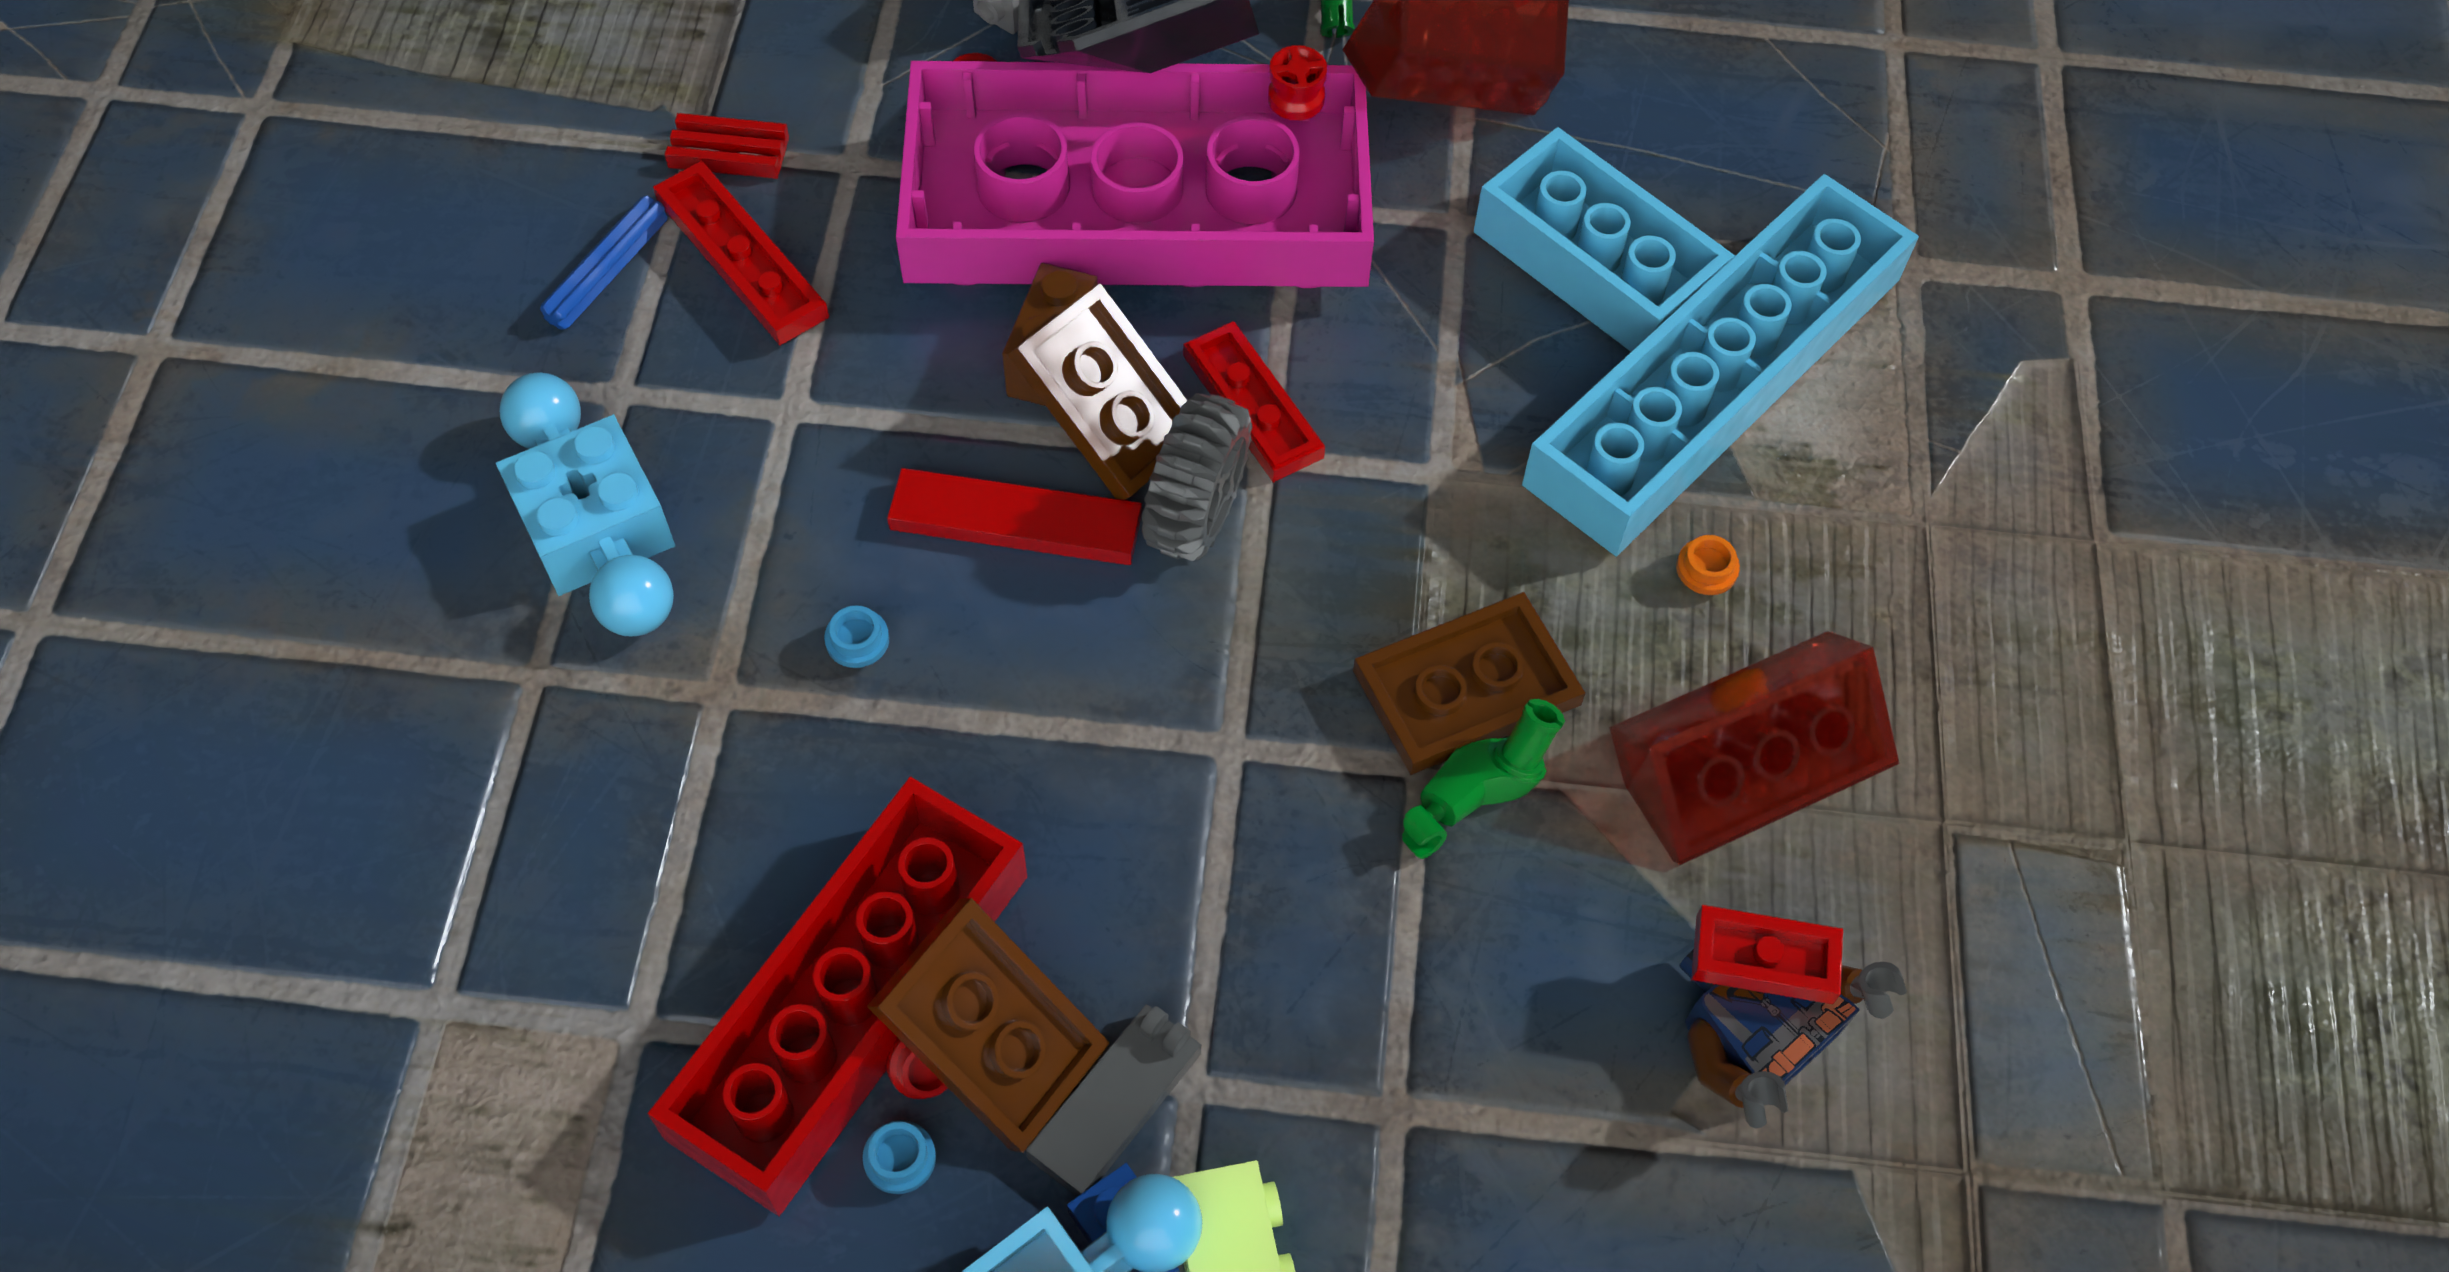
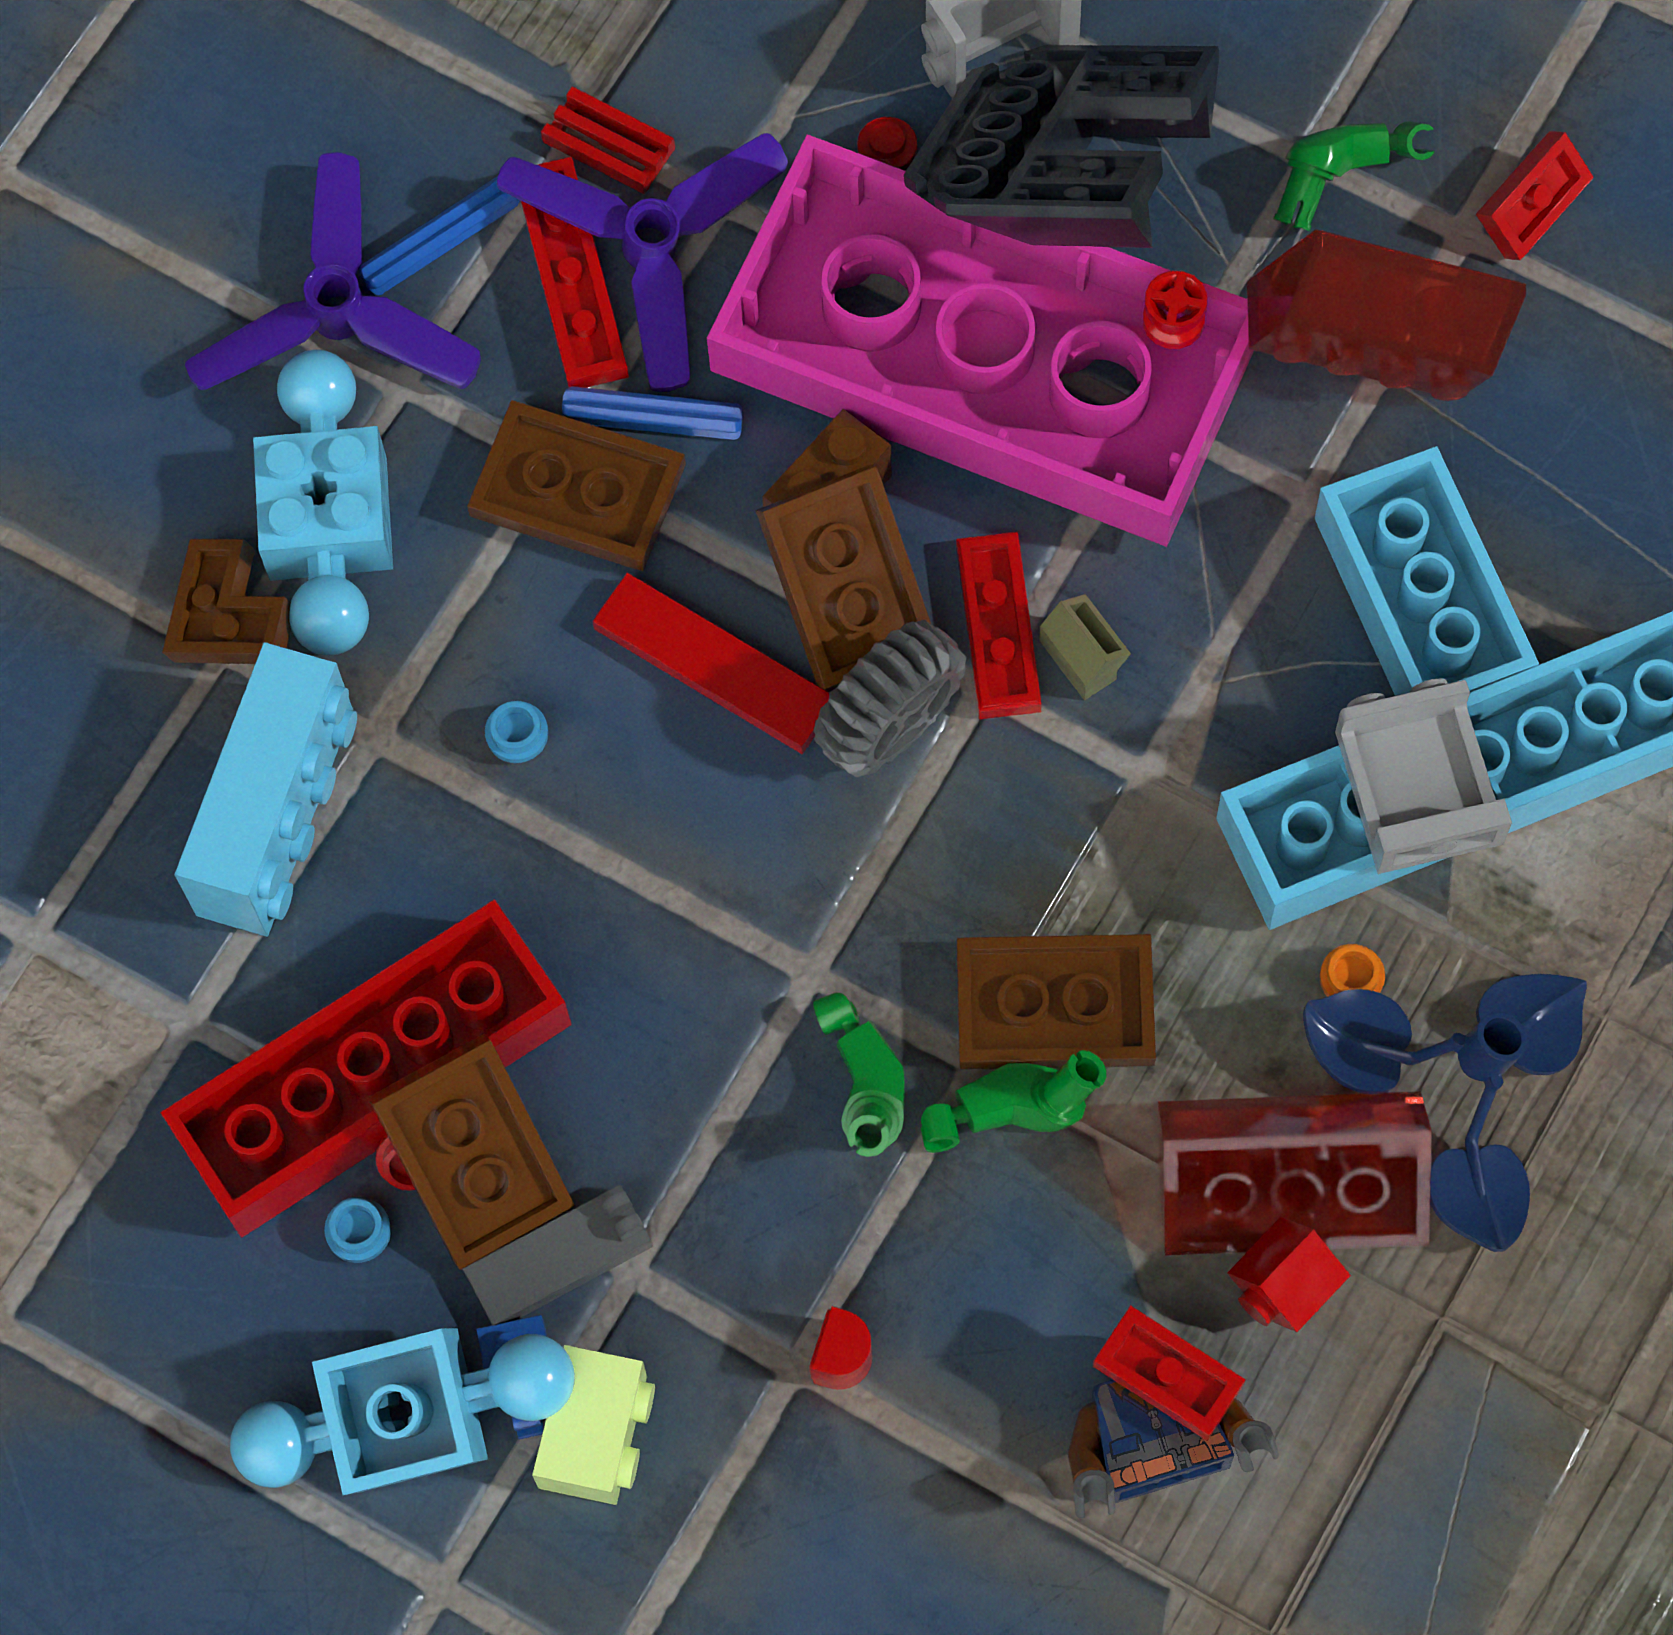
camera: 30 degrees right, 10 degrees up
(519, 639) = (211, 613): none -> reddish brown plate
(533, 342) = (374, 320): none -> dark purple piece
(634, 769) = (267, 790): none -> medium azure brick
(800, 200) = (687, 211): none -> dark purple piece
(821, 414) = (576, 485): none -> reddish brown plate
(863, 336) = (653, 412): none -> blue axle
(1337, 387) = (1083, 645): none -> olive piece
(1348, 815) = (876, 1098): none -> green arm
(1438, 1069) = (841, 1351): none -> red brick
(1696, 367) = (1419, 776): none -> light grey panel
(1807, 830) = (1287, 1275): none -> red brick
(1881, 558) = (1520, 1023): none -> dark blue plant

